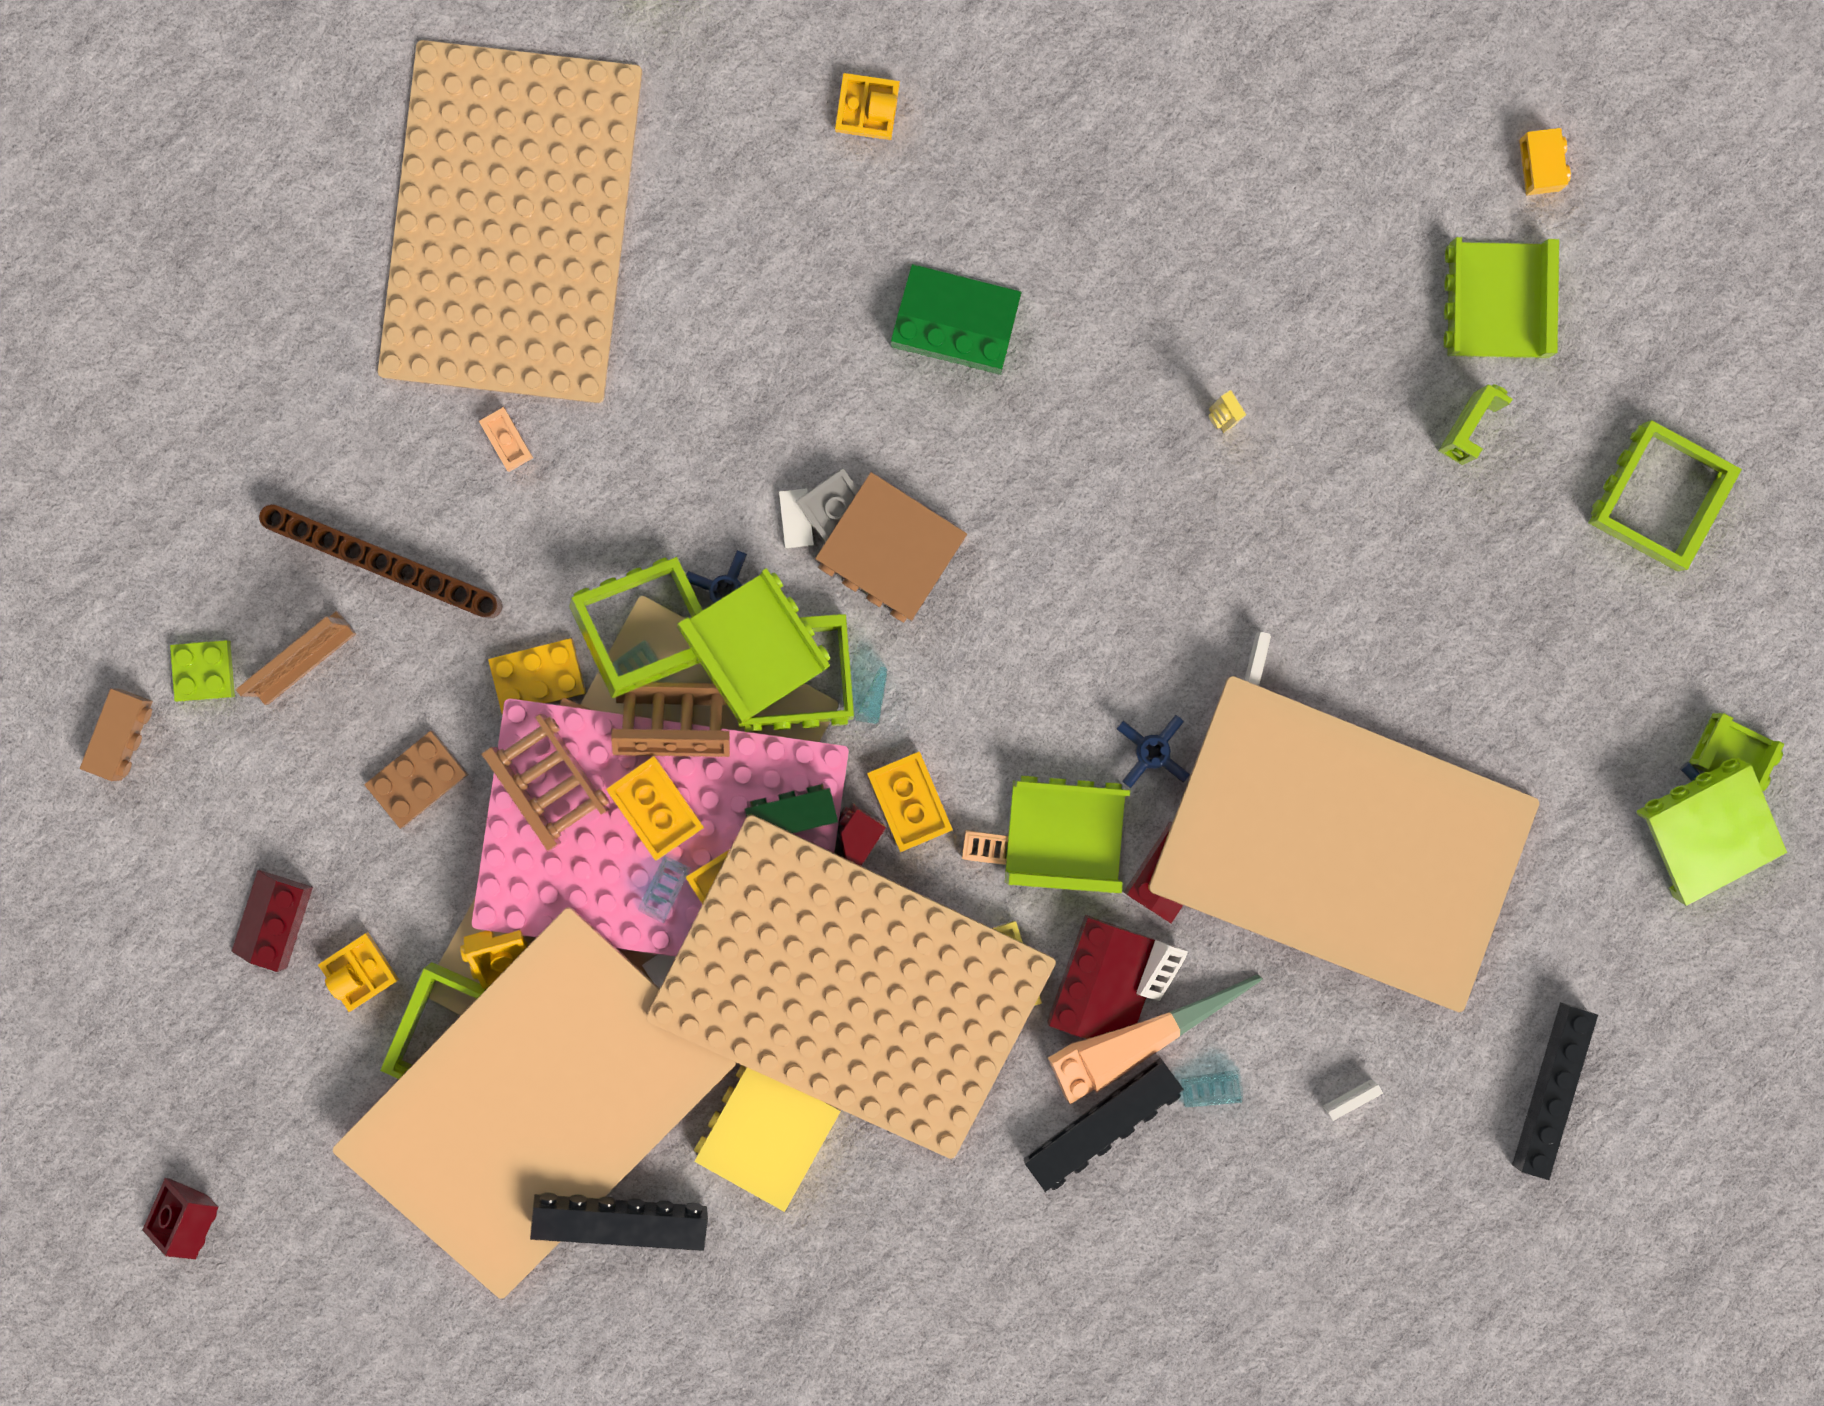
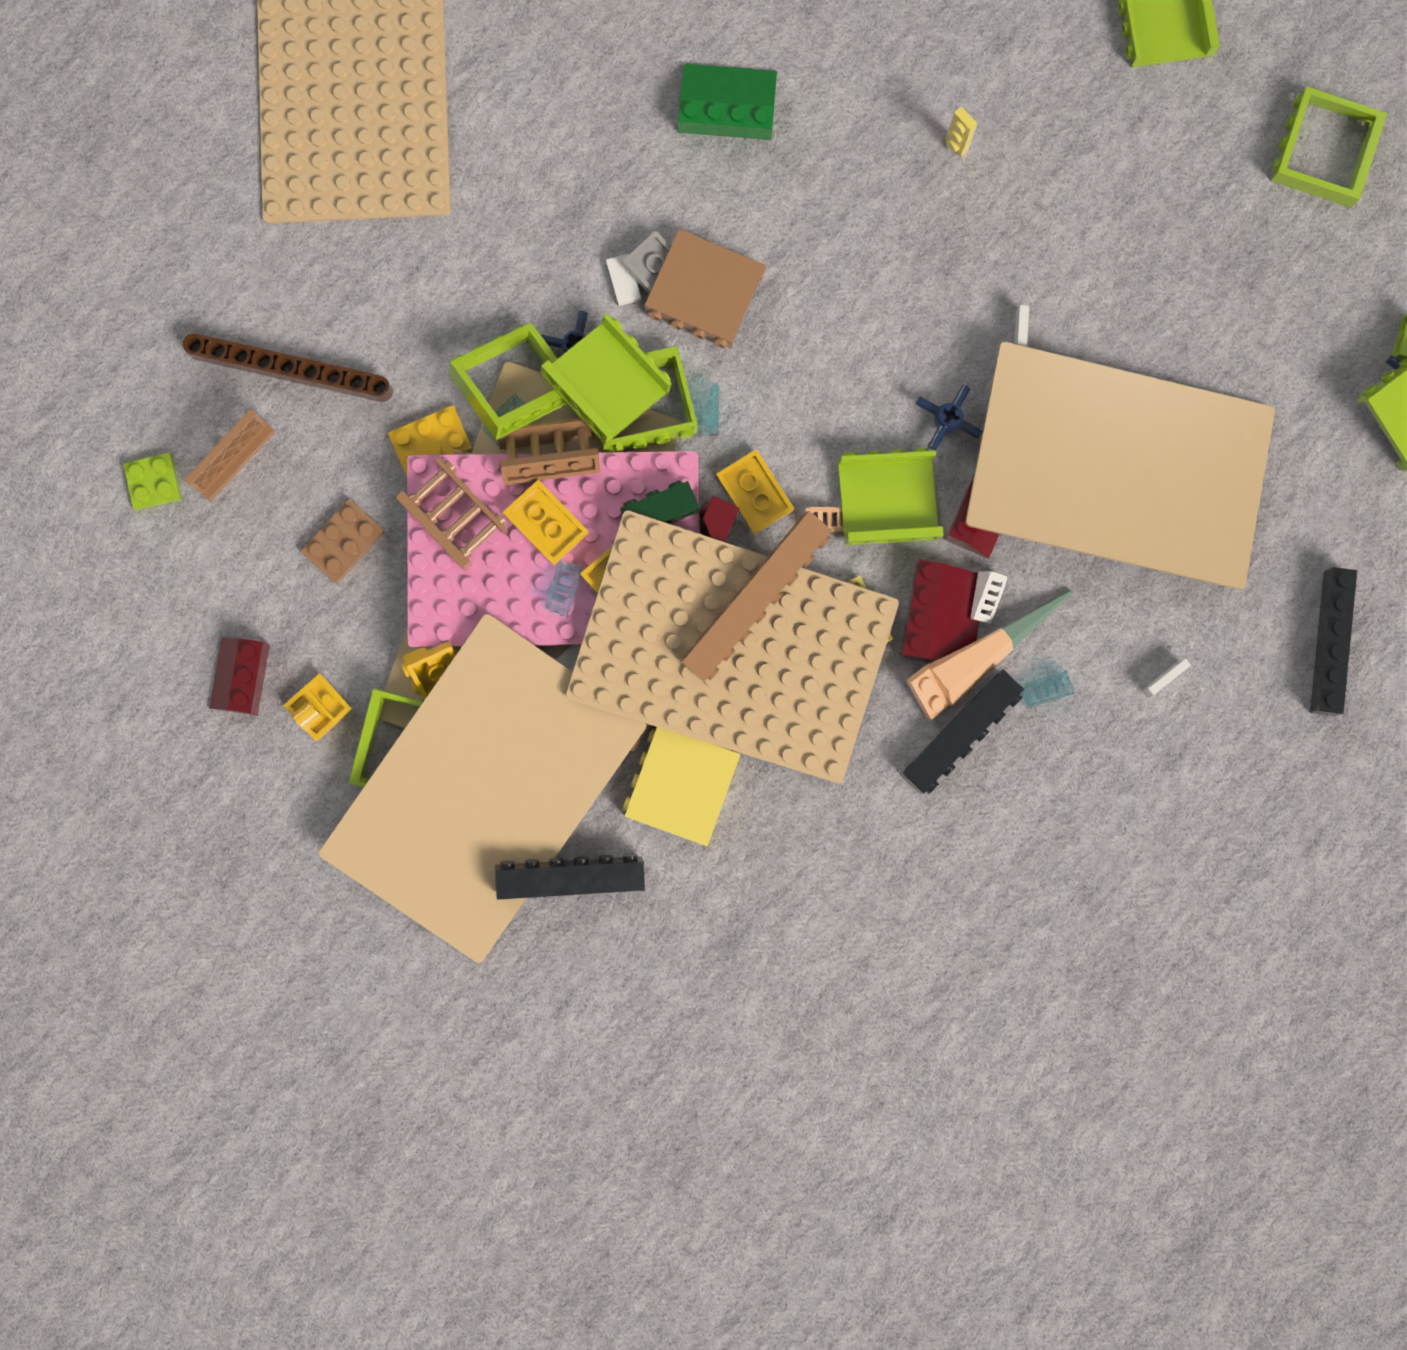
camera: 10 degrees left, 5 degrees down
(116, 735) = (89, 543): medium nougat brick -> none
(180, 1220) = (198, 939): dark red slope -> none
(506, 439) = (376, 253): light nougat plate -> none
(886, 939) = (755, 596): none -> medium nougat brick
(1456, 443) = (1156, 130): lime panel -> none

